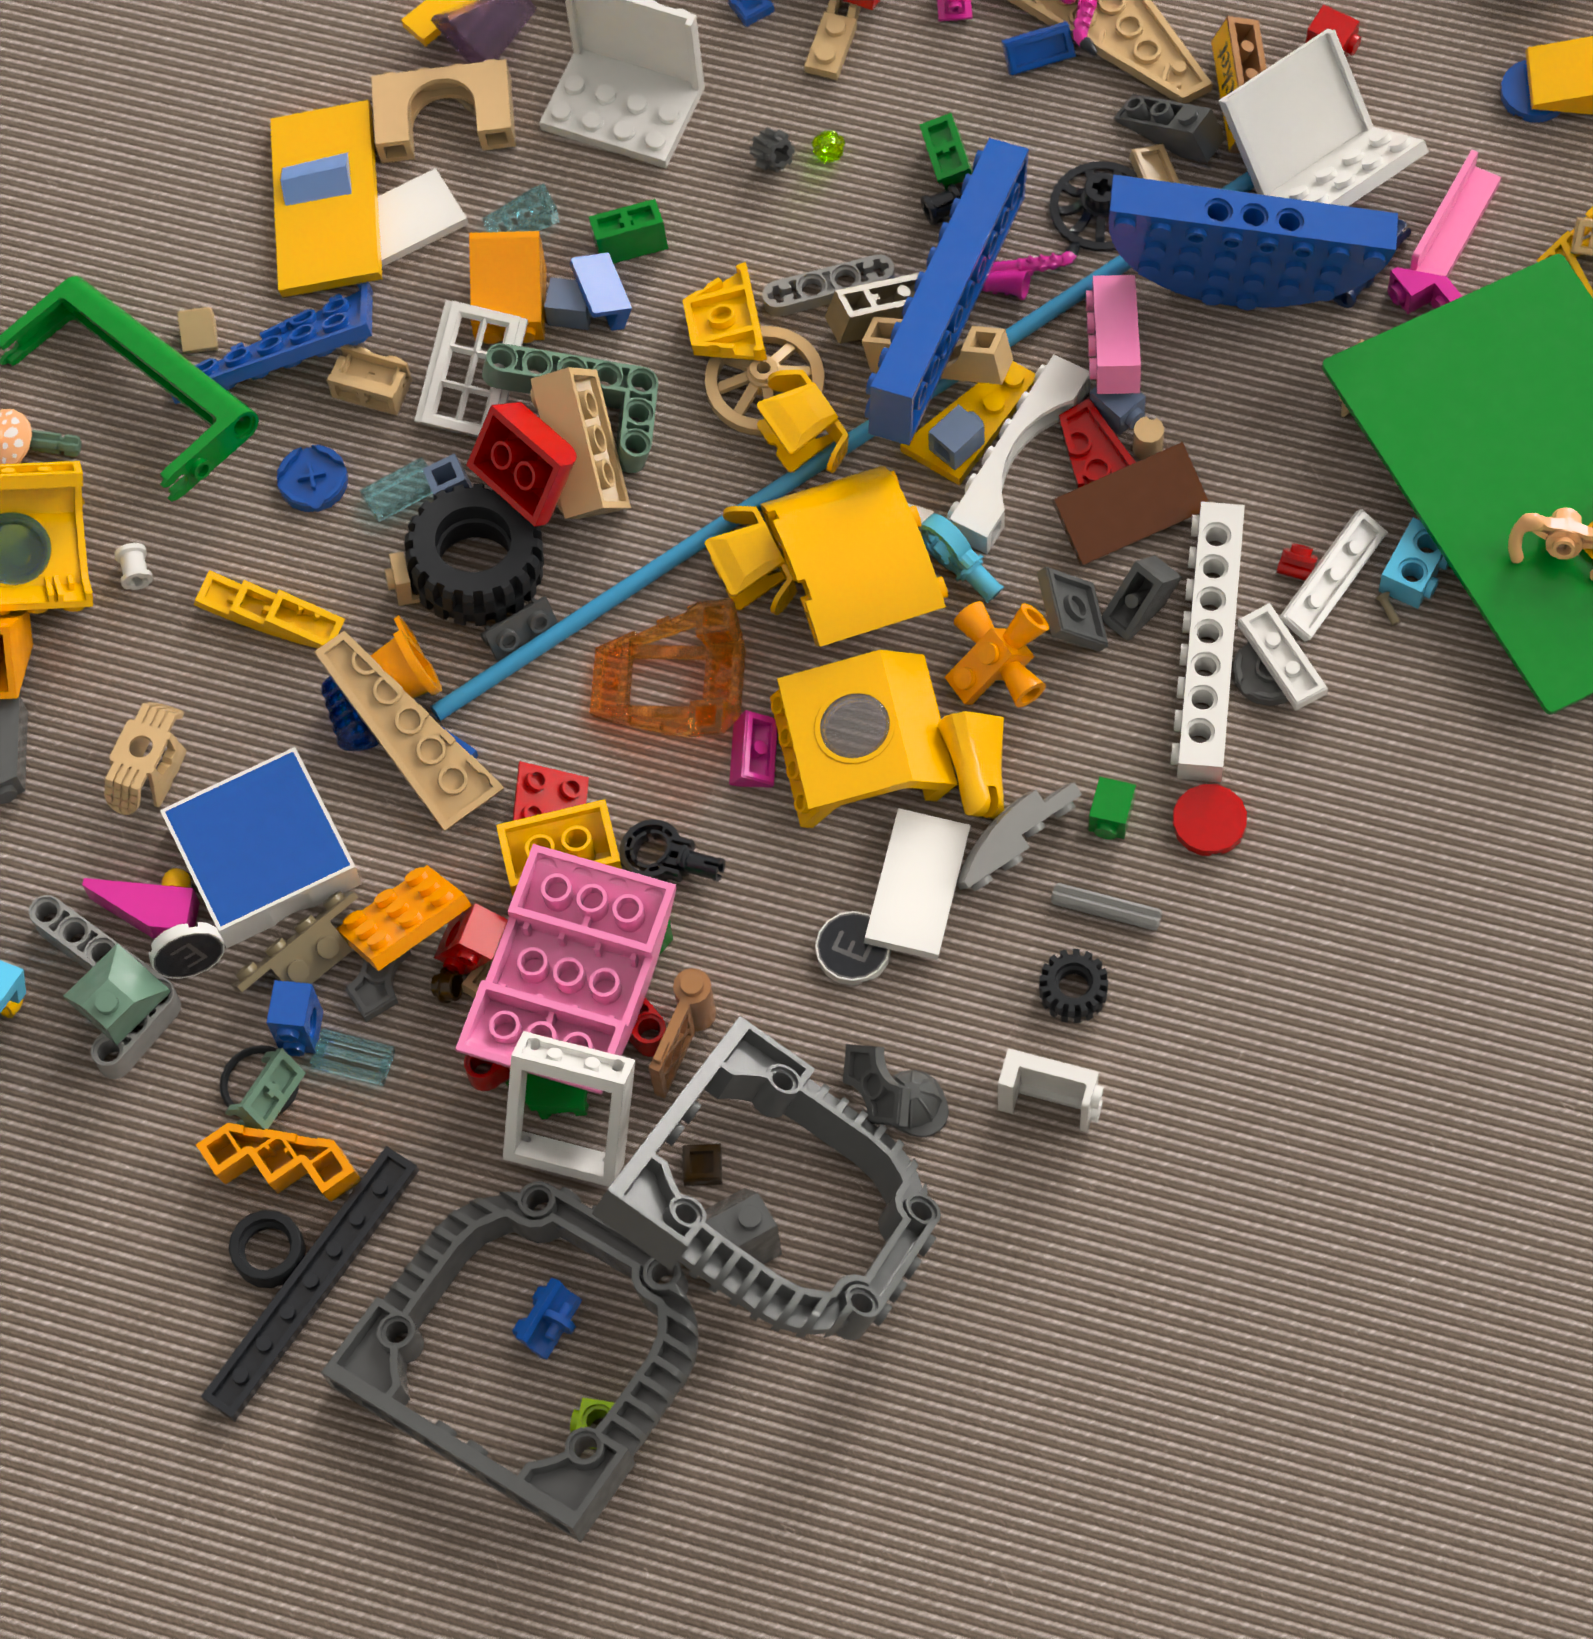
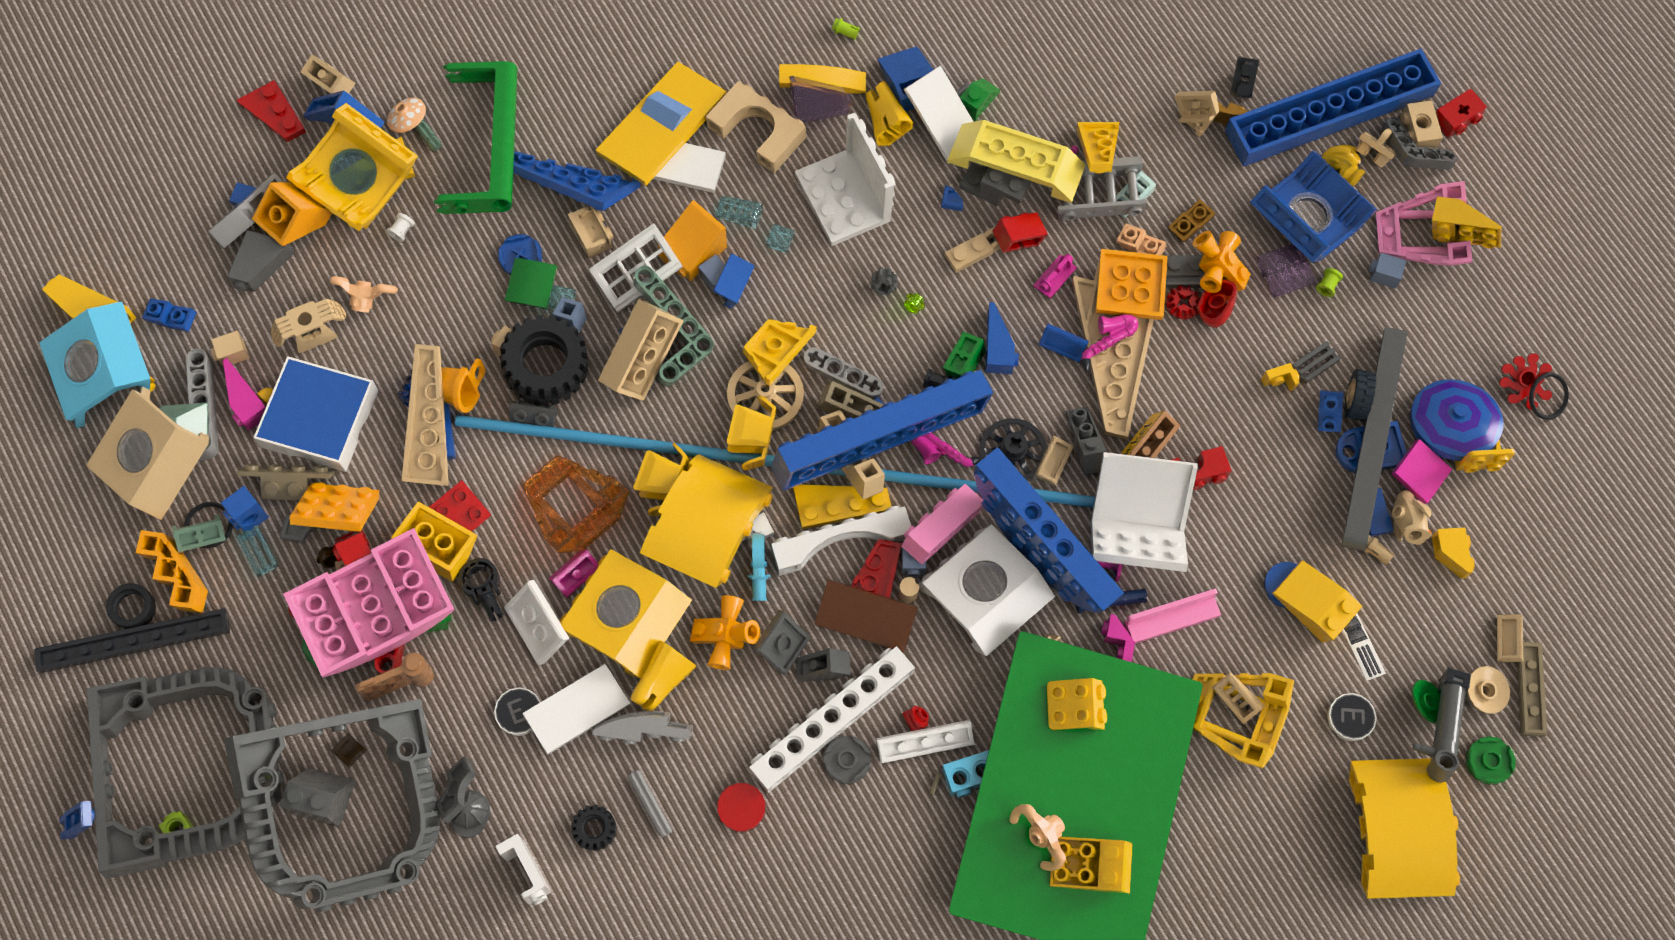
camera: 35 degrees right, 5 degrees up
(68, 868) = (230, 347): none -> tan brick
(111, 1055) = (146, 455): none -> tan panel
(169, 671) = (362, 293): none -> light nougat piece
(186, 950) = (233, 435): tile -> none
(197, 330) = (542, 137): tan slope -> none
(268, 612) = (435, 303): yellow slope -> none
(362, 491) = (531, 283): none -> green slope
(473, 1515) = (77, 820): none -> blue hinge
(522, 460) = (598, 336): red brick -> none
(548, 1319) = (206, 758): blue hips -> none
(577, 1066) = (316, 663): white window -> none
(597, 202) = (780, 238): none -> clear light blue tile
(629, 231) = (777, 263): green hinge -> none
(774, 832) = (536, 622): none -> white tile
(957, 436) = (817, 506): sand blue brick -> none
(974, 108) = (999, 345): none -> blue slope
(1111, 808) = (699, 758): green brick -> none
(1232, 357) = (988, 588): none -> white panel
(1282, 656) = (856, 760): white tile -> none
(1458, 381) = (1076, 704): none -> yellow bracket

